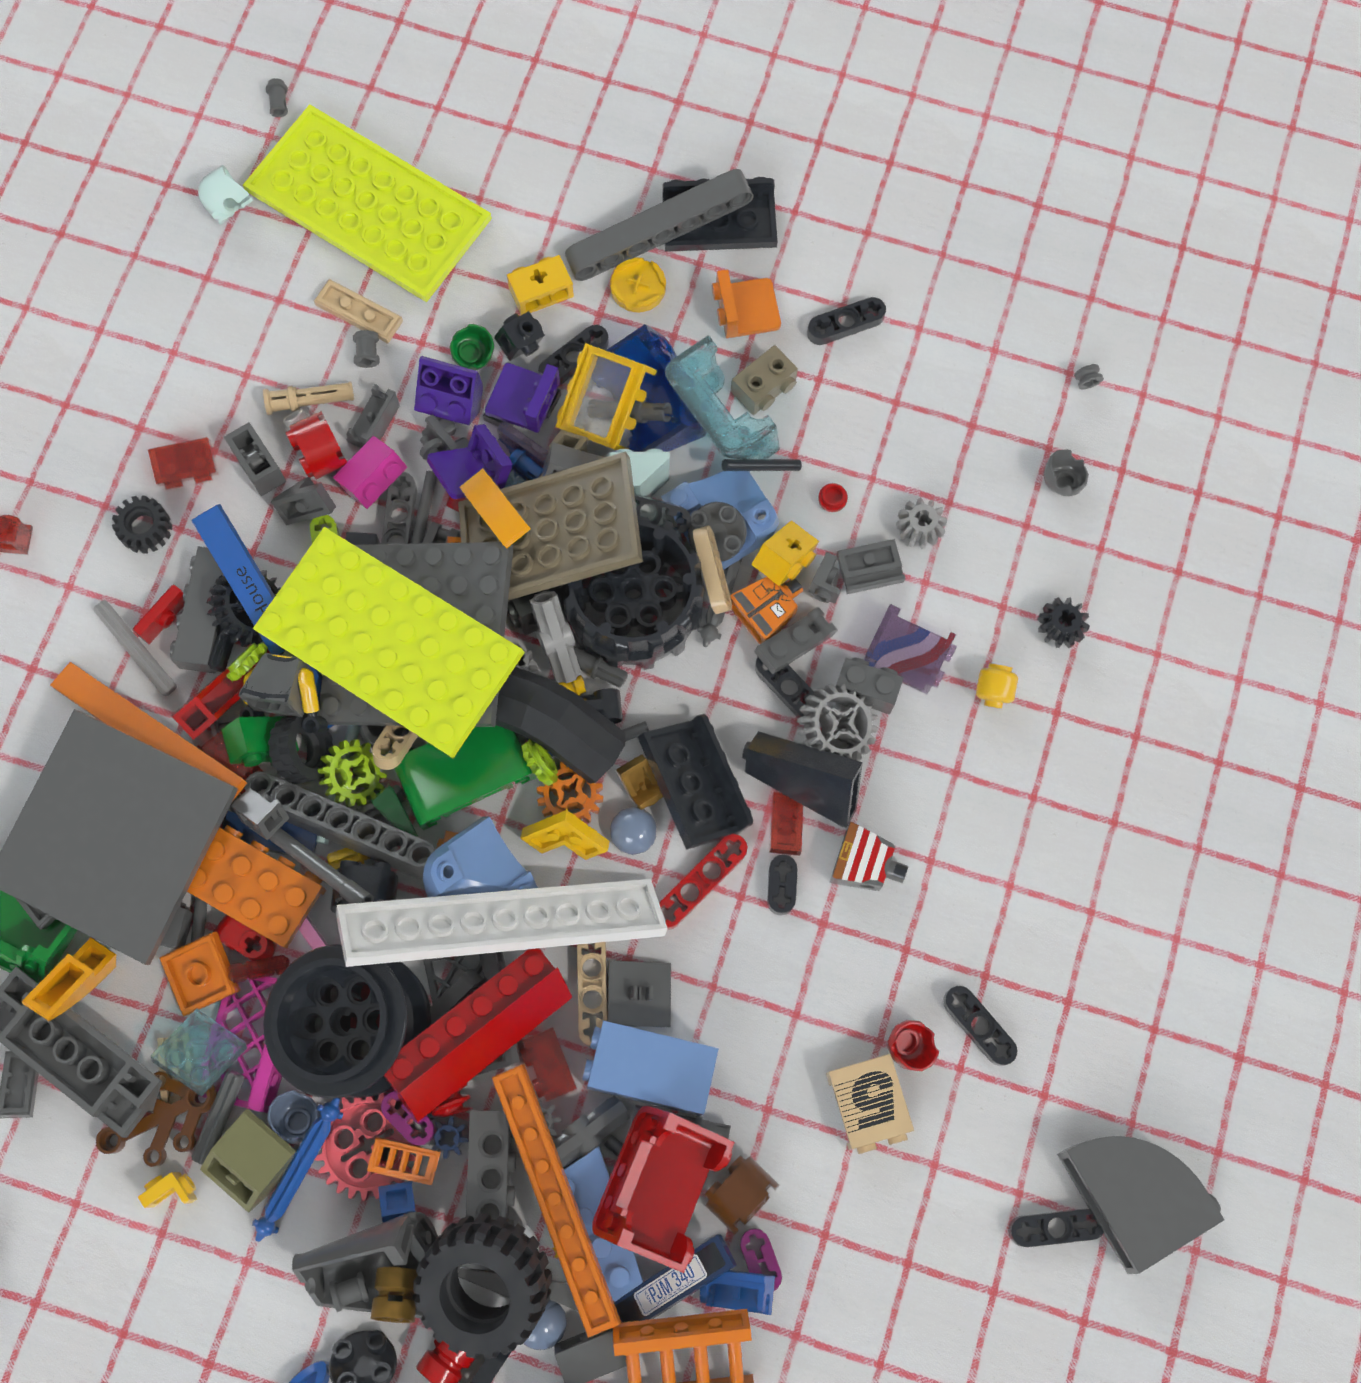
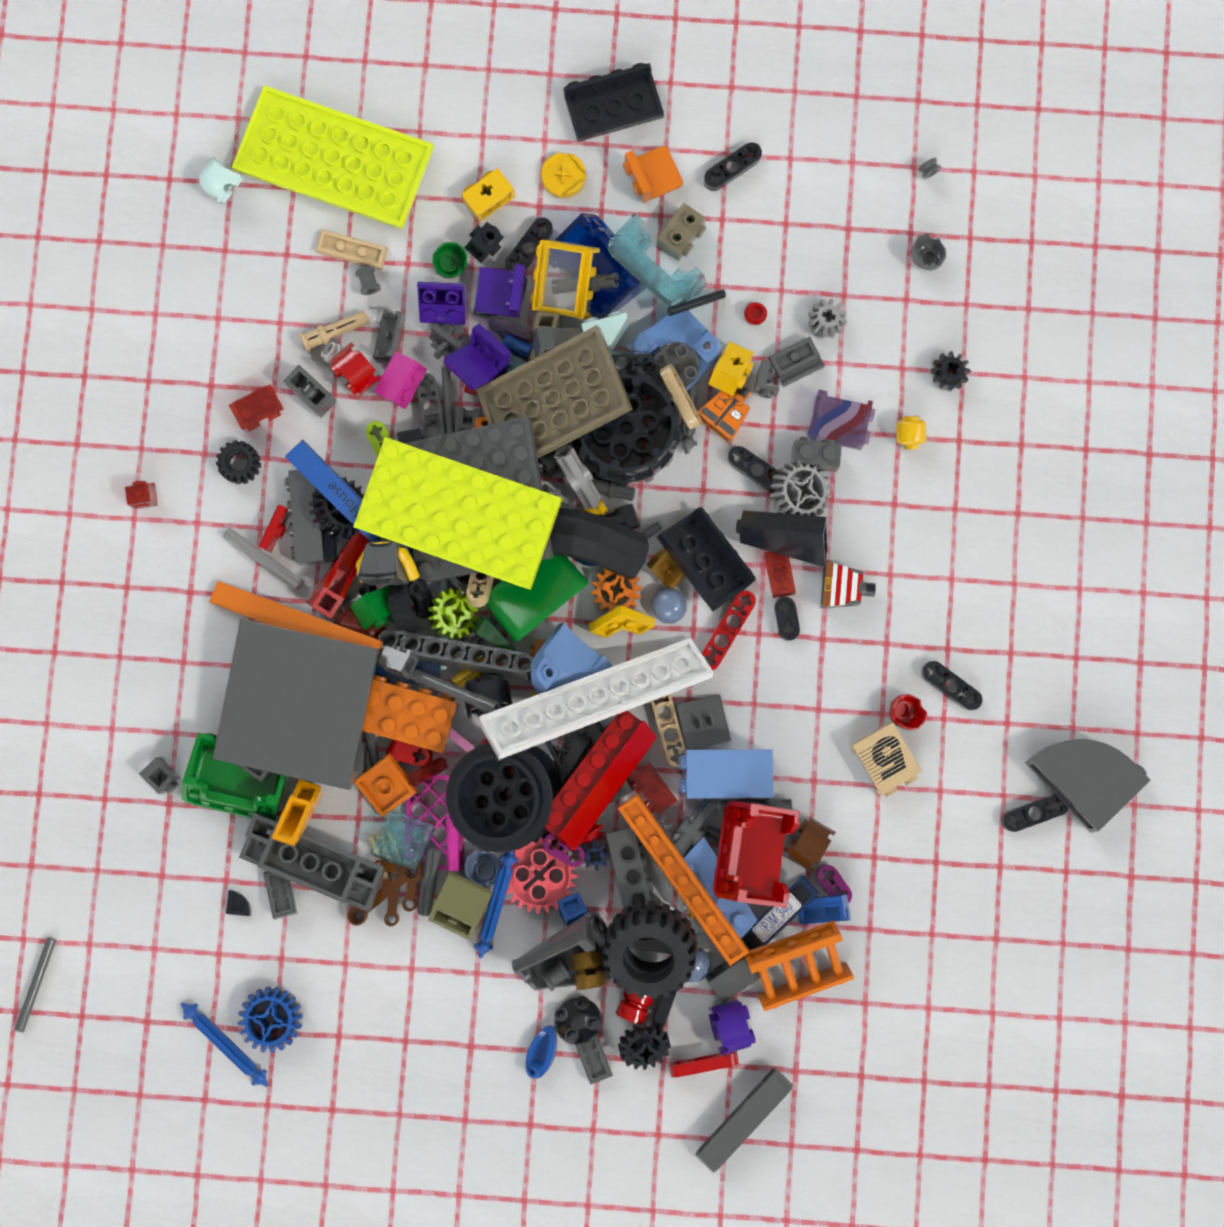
camera: 10 degrees left, 10 degrees up
(161, 1188) = (403, 938): yellow bracket -> none
(246, 661) = (353, 550): lime gear -> none
(277, 97) = (235, 84): dark grey pin -> none
(303, 502) = (356, 416): dark grey slope -> none
(376, 1154) = (549, 879): orange slope -> none
(495, 508) = (509, 391): light orange slope -> none
(540, 762) = (590, 574): lime gear -> none
(659, 224) = (569, 123): dark grey beam -> none
(795, 641) = (753, 434): dark grey plate -> none

